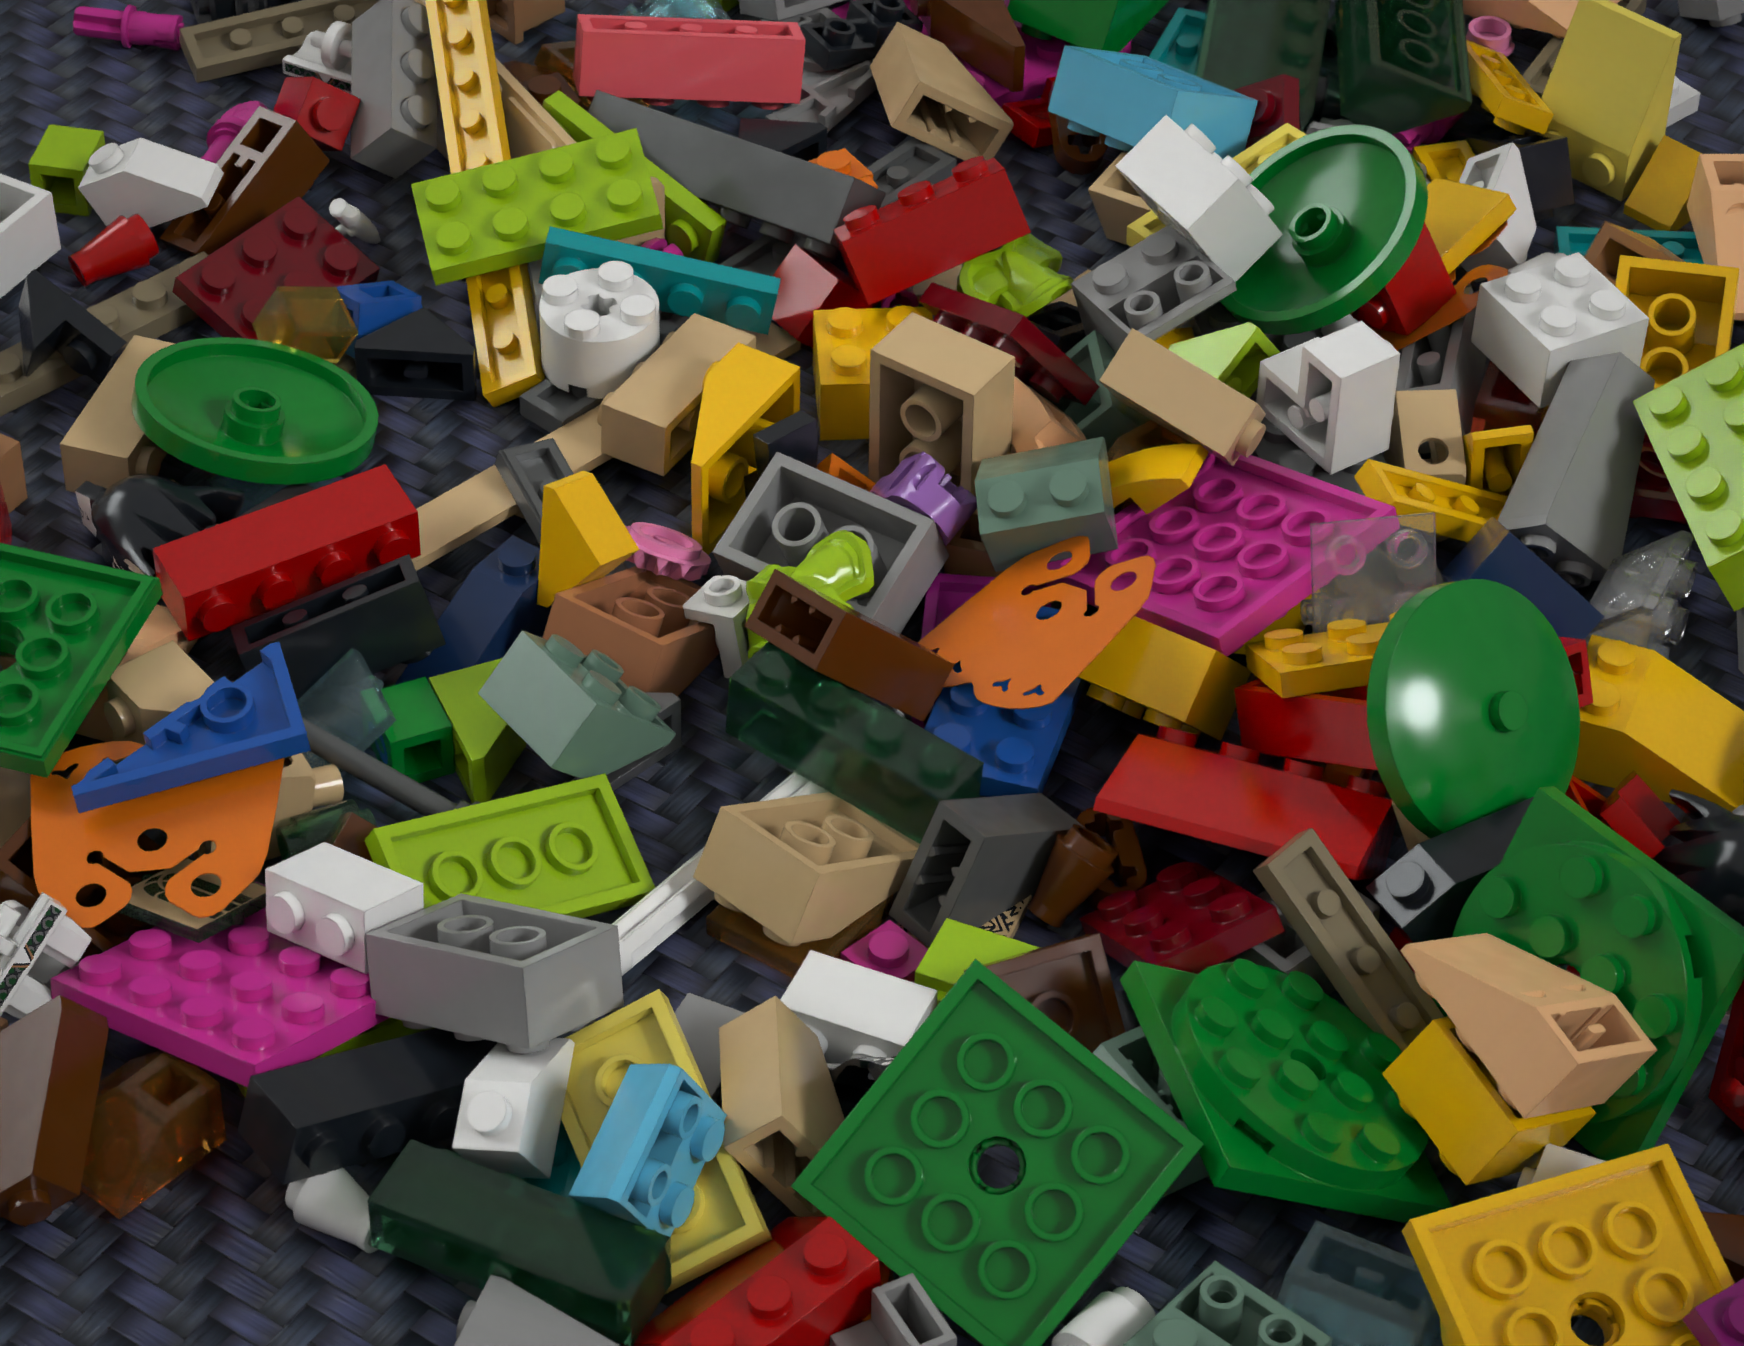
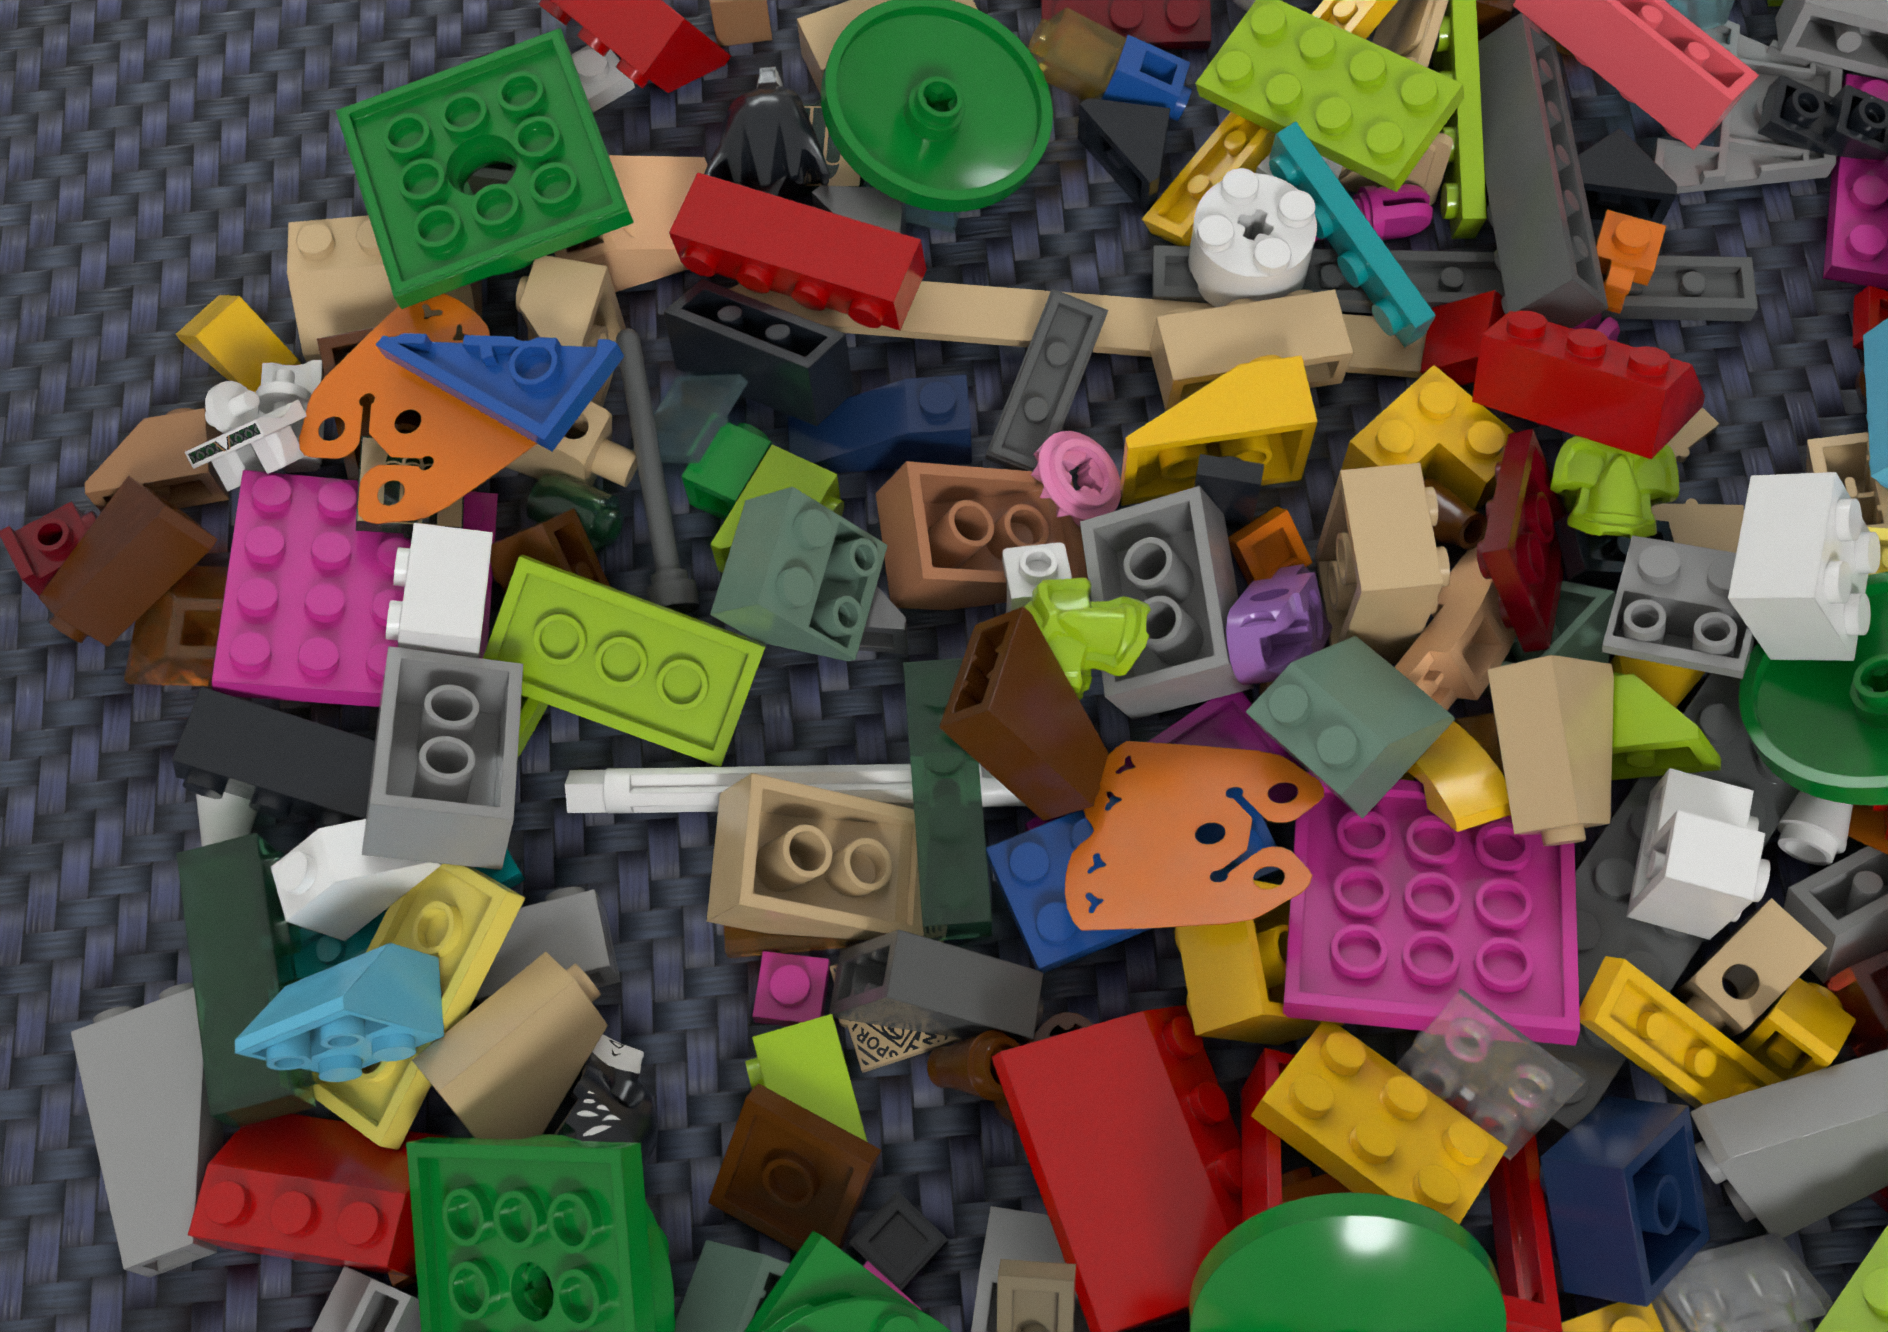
camera: 55 degrees right, 25 degrees up
(578, 536) = (979, 424): yellow slope -> none
(856, 1008) = (690, 1025): white brick -> none
(936, 96) = (1809, 236): tan slope -> none
(1182, 920) = (960, 1212): dark red plate -> none

